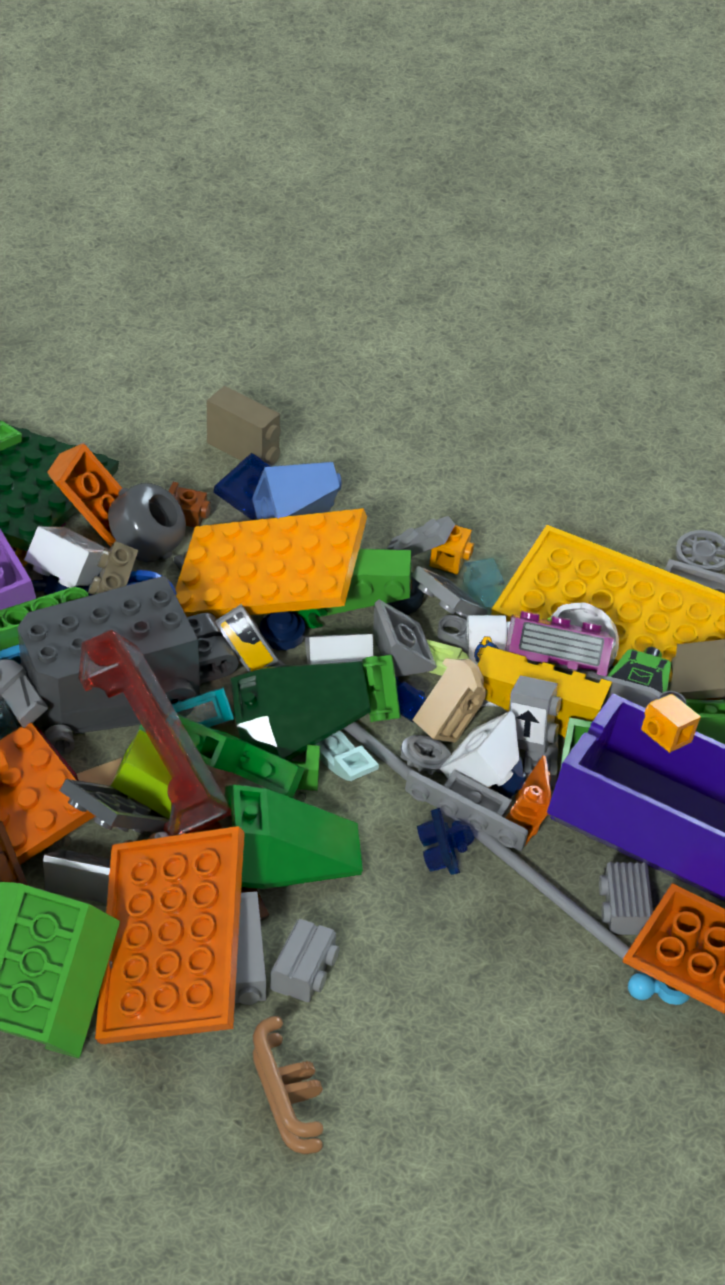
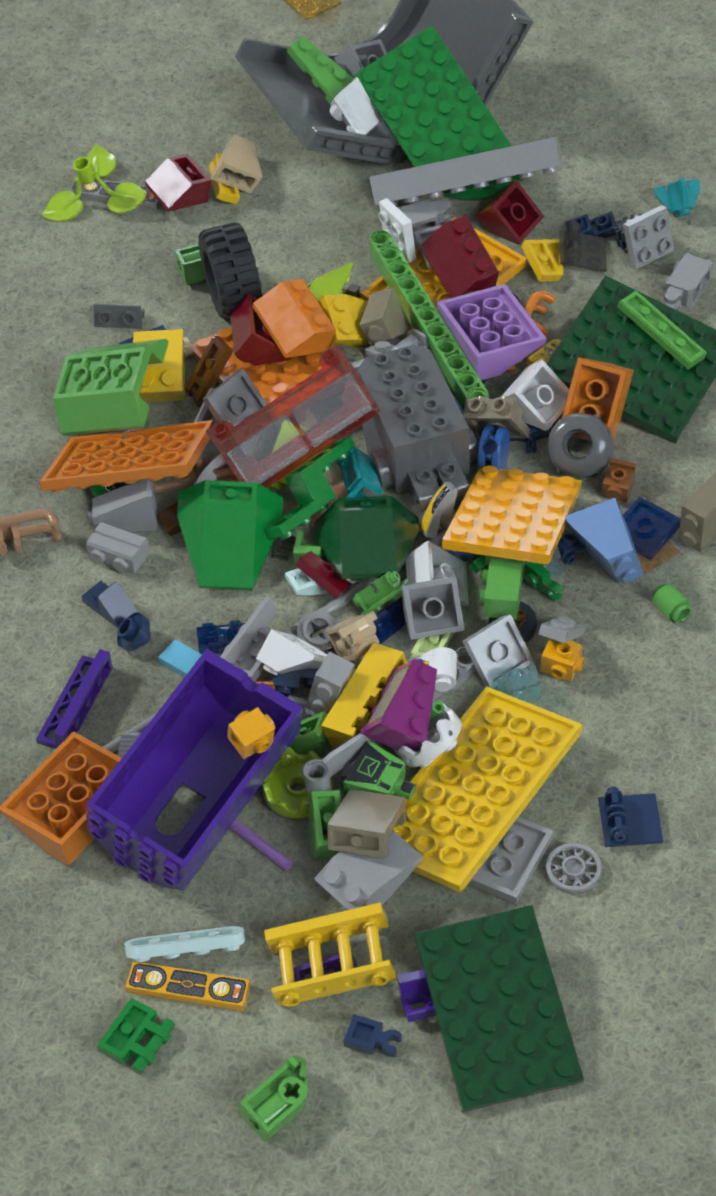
camera: 100 degrees right, 5 degrees up
(351, 740) = (323, 574): none -> dark red plate
(361, 470) = (671, 603): none -> bright green brick
(390, 968) = (109, 602): none -> slope
(445, 928) = (133, 632): none -> dark blue plate
(478, 879) = (179, 658): none -> medium azure tile
(557, 972) = (81, 703): none -> dark purple fence
(640, 511) = (629, 819): none -> dark blue hinge

